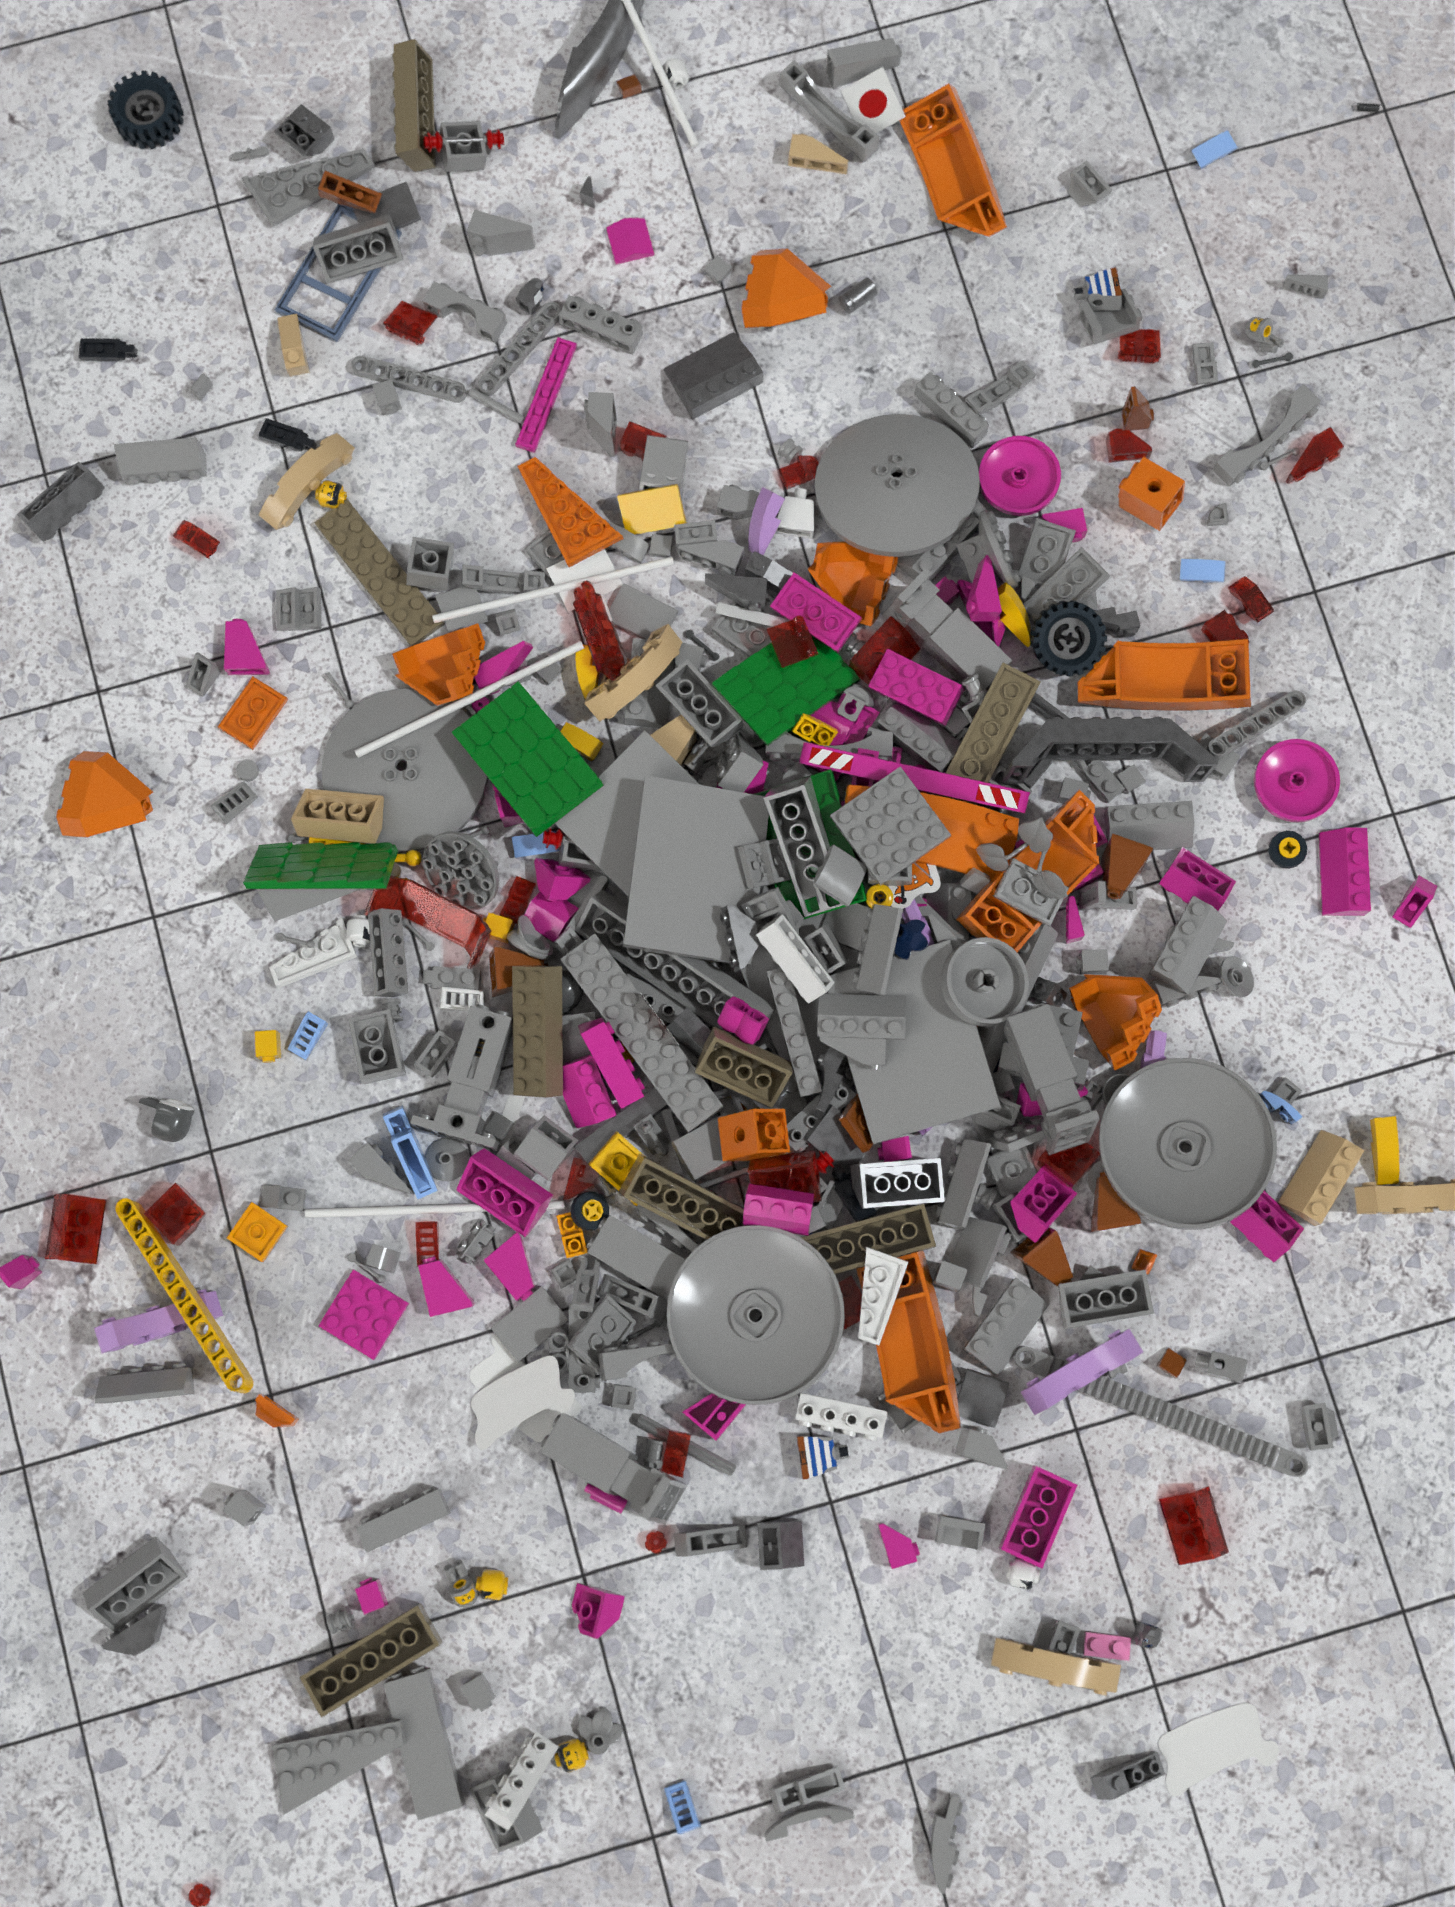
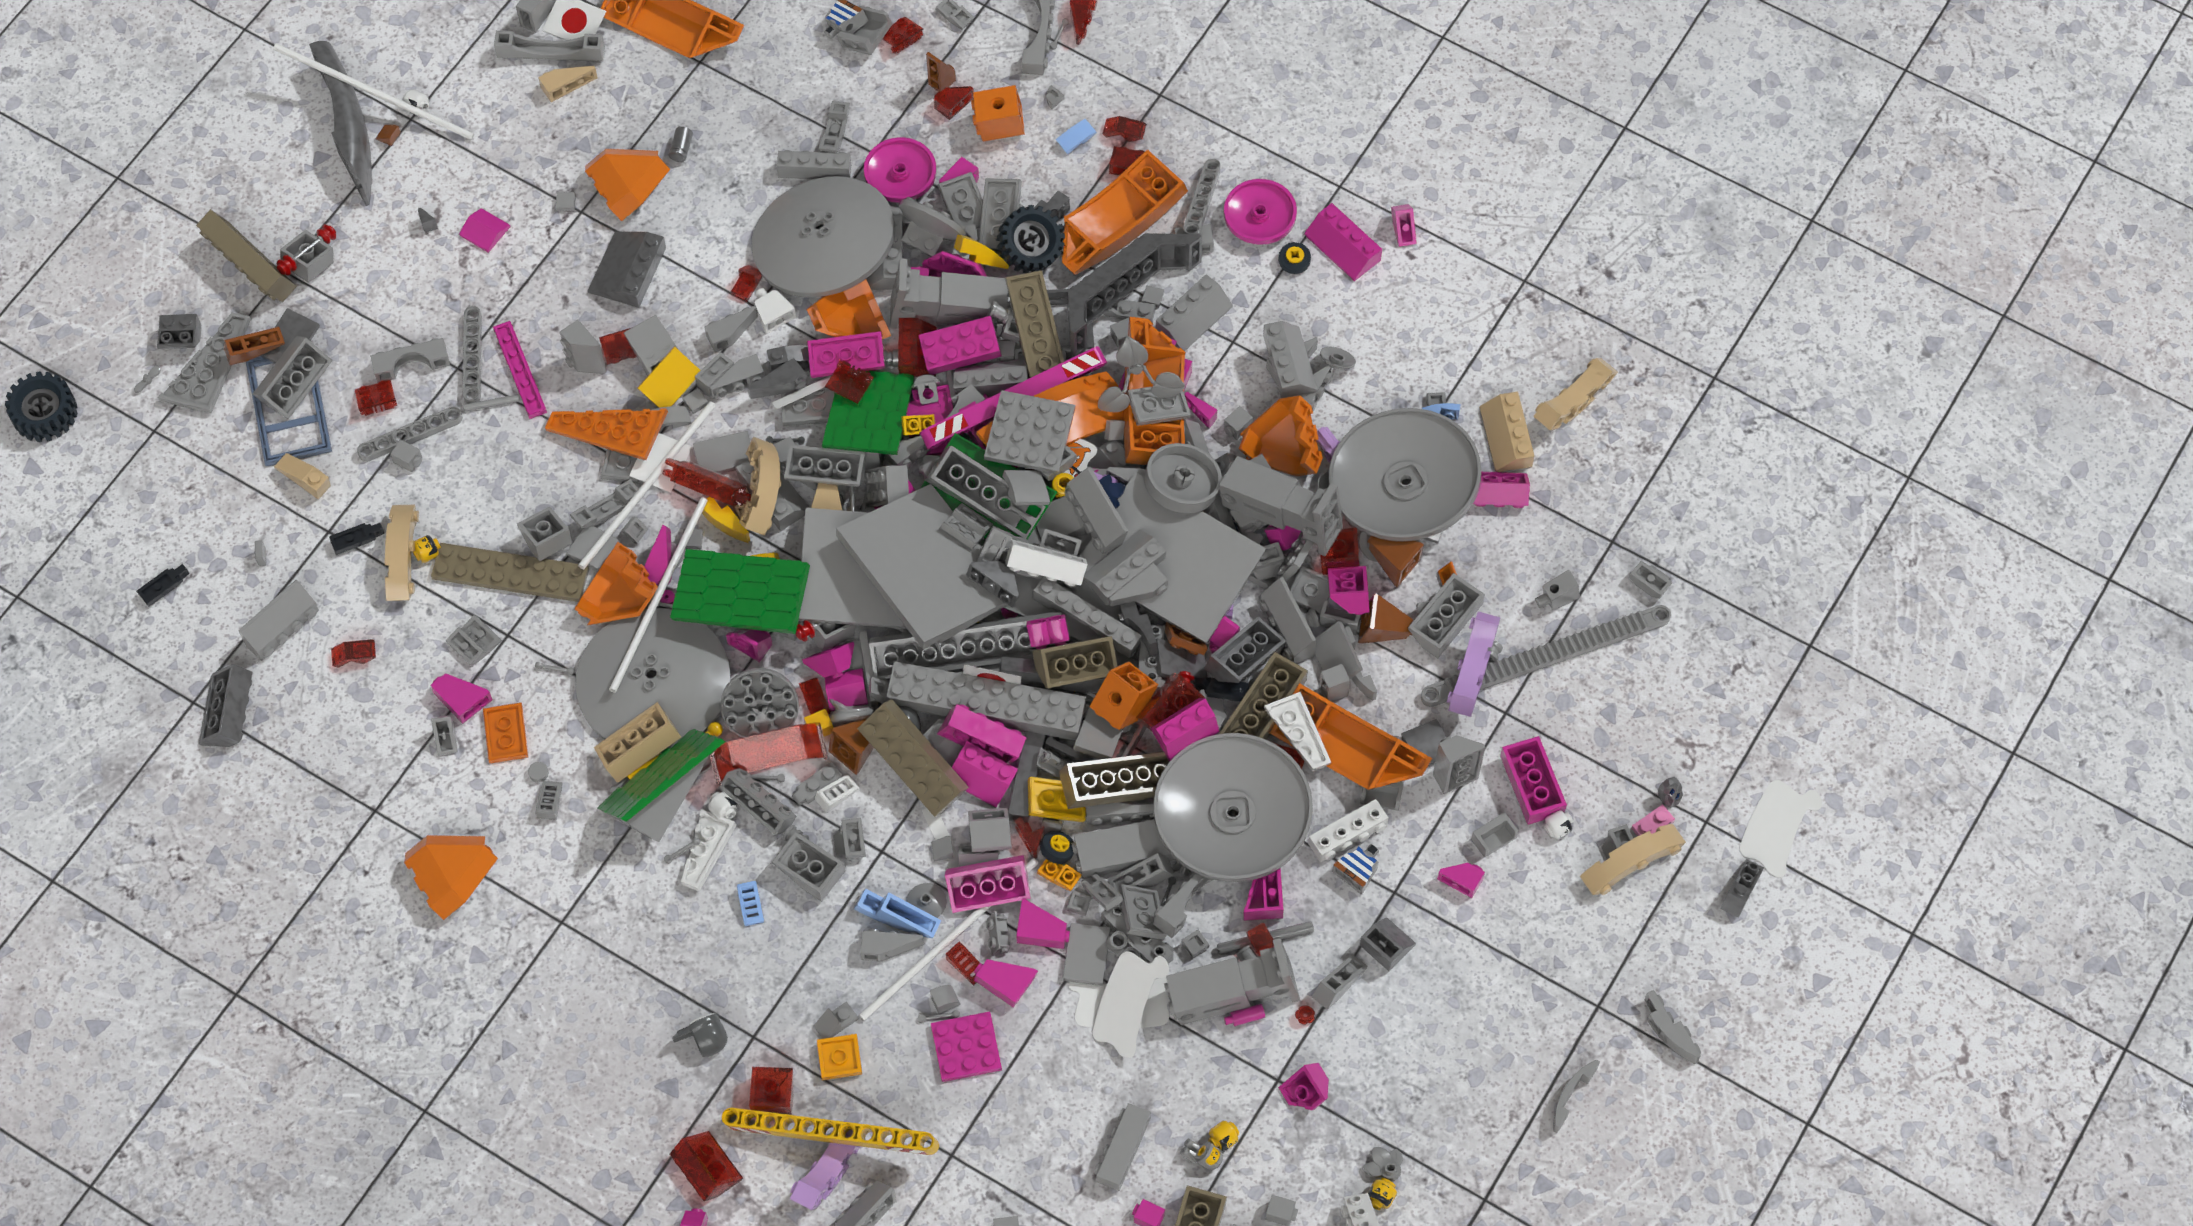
camera: 45 degrees left, 15 degrees down
(268, 1045) = (729, 931): yellow brick -> none
(273, 1413) = (966, 1160): orange slope -> none
(472, 1079) = (898, 832): light grey brick -> none
(498, 235) = (389, 291): light grey slope -> none
(530, 295) = (448, 315): flat silver rock -> none
(530, 845) = (791, 653): light blue slope -> none
(601, 324) = (516, 295): light grey brick -> none
(674, 1810) = (1498, 1175): light blue slope -> none
(763, 520) = (754, 326): lavender slope -> none
(790, 451) = (728, 273): light grey wheel -> none
(806, 1789) = (1552, 1077): light grey slope -> none
(983, 598) = (951, 251): dark pink slope -> none
(1006, 1326) = (1399, 686): light grey slope -> none
(1095, 897) = (1205, 377): light grey bracket -> none
(1122, 864) = (1199, 345): dark orange slope -> none
(1171, 1363) = (1525, 621): dark orange slope -> none
(1194, 877) = (1249, 322): dark pink slope -> none
(1194, 1526) = (1634, 703): clear red slope -> none
(1385, 1150) = (1528, 381): yellow slope -> none

